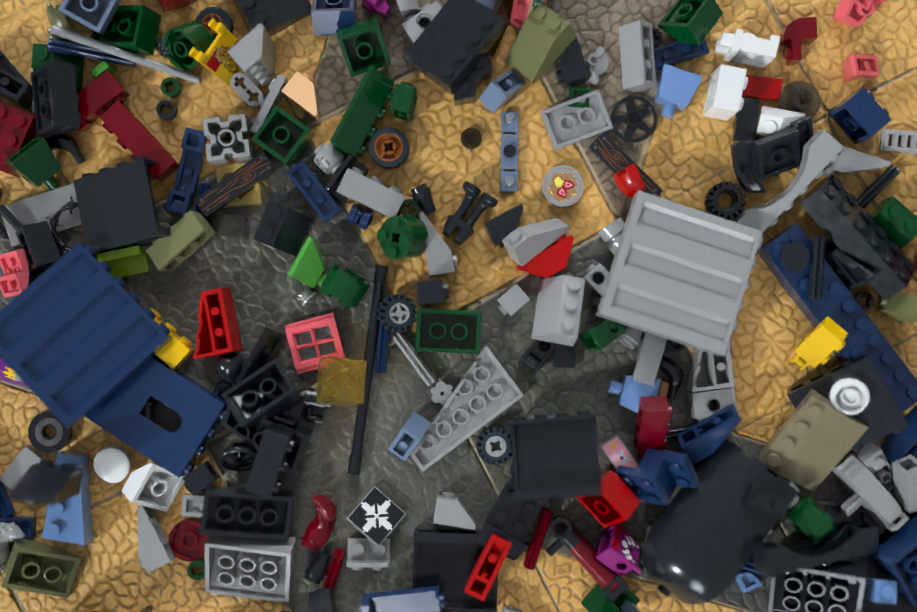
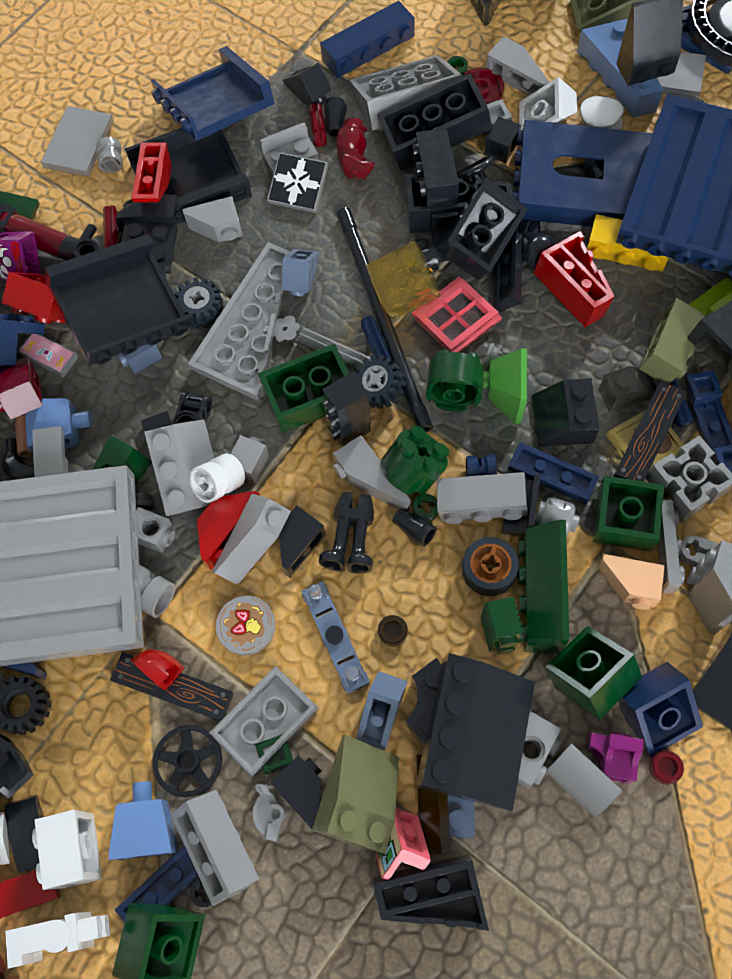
camera: 160 degrees right, 20 degrees down
(540, 287) = (217, 477): none -> white wheel

